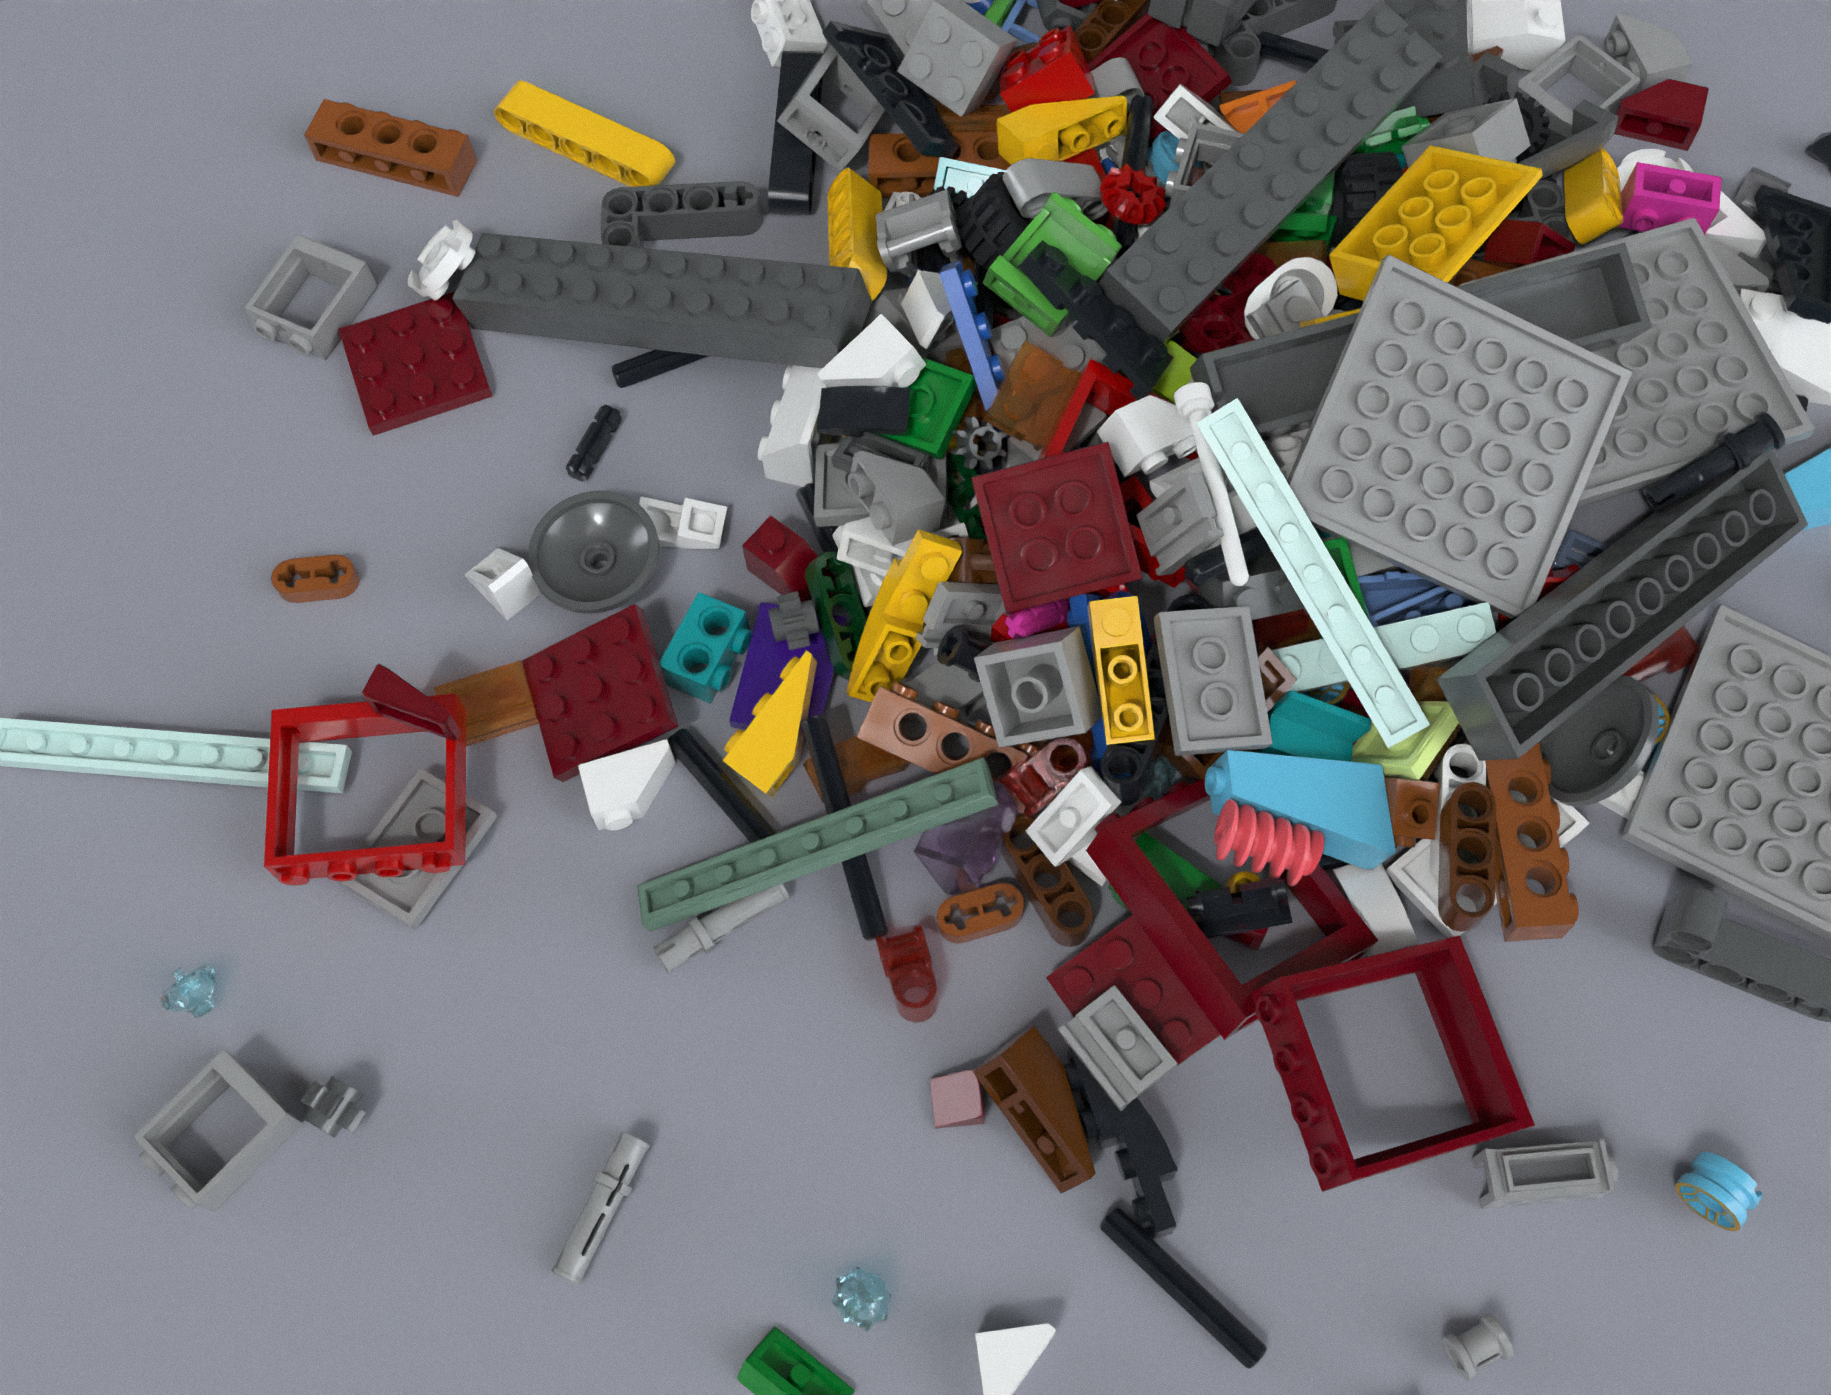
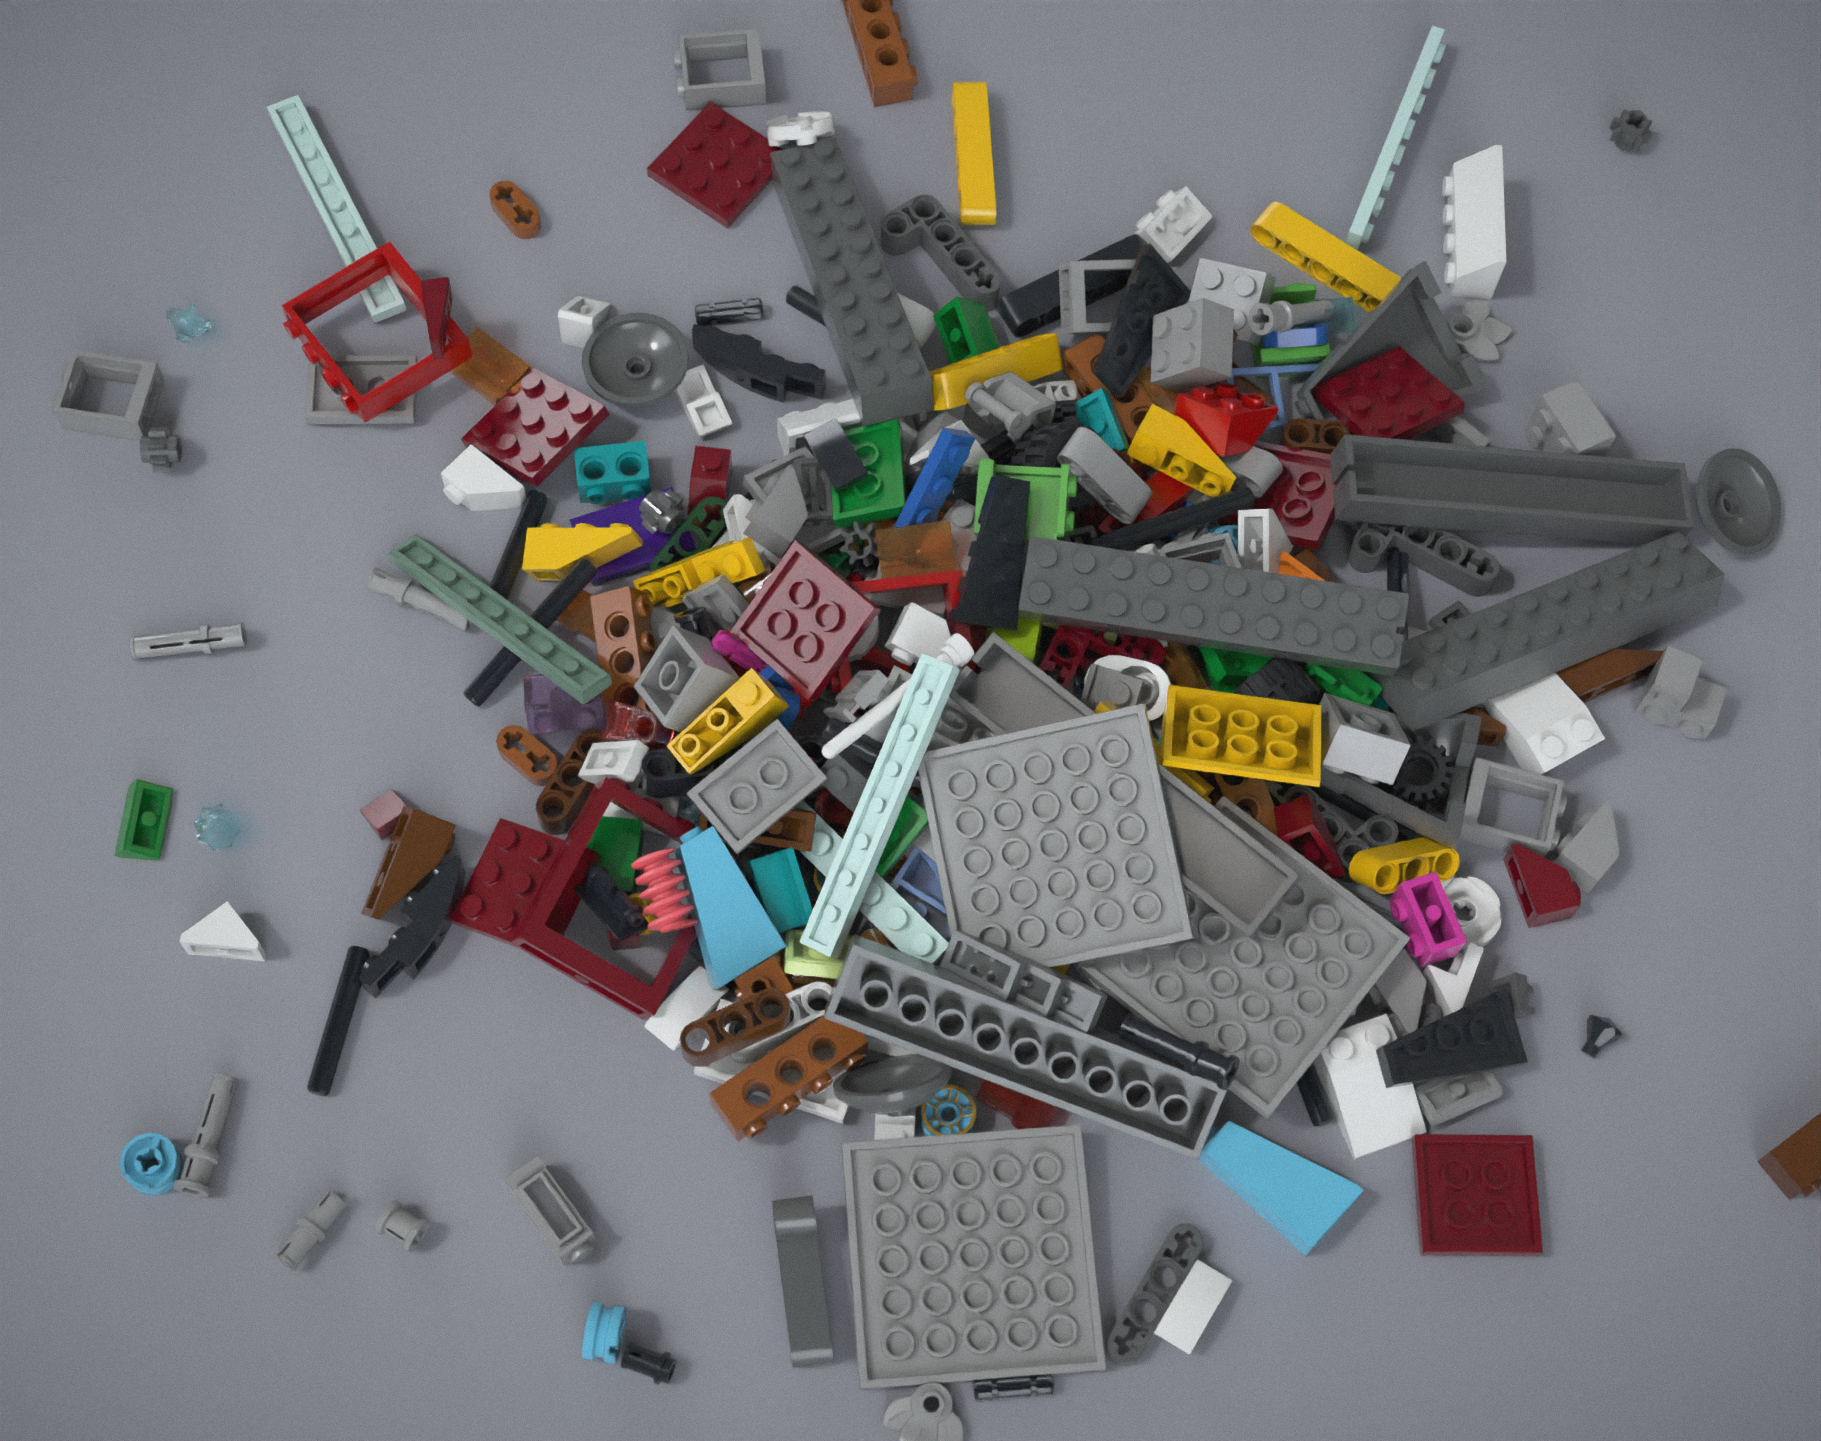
camera: 50 degrees right, 0 degrees up
(667, 459) = (743, 363): none -> black slope
(787, 241) = (965, 329): none -> green brick
(874, 359) = (876, 436): white slope -> none
(908, 965) = (459, 727): clear red piece -> none
(1117, 1048) = (468, 882): light grey plate -> none
(1124, 203) = (1123, 526): red gear -> none
(1463, 1027) = (624, 1105): dark red window -> none
(1572, 554) = (1023, 981): none -> dark grey slope
(1772, 1161) = (649, 1363): none -> black pin

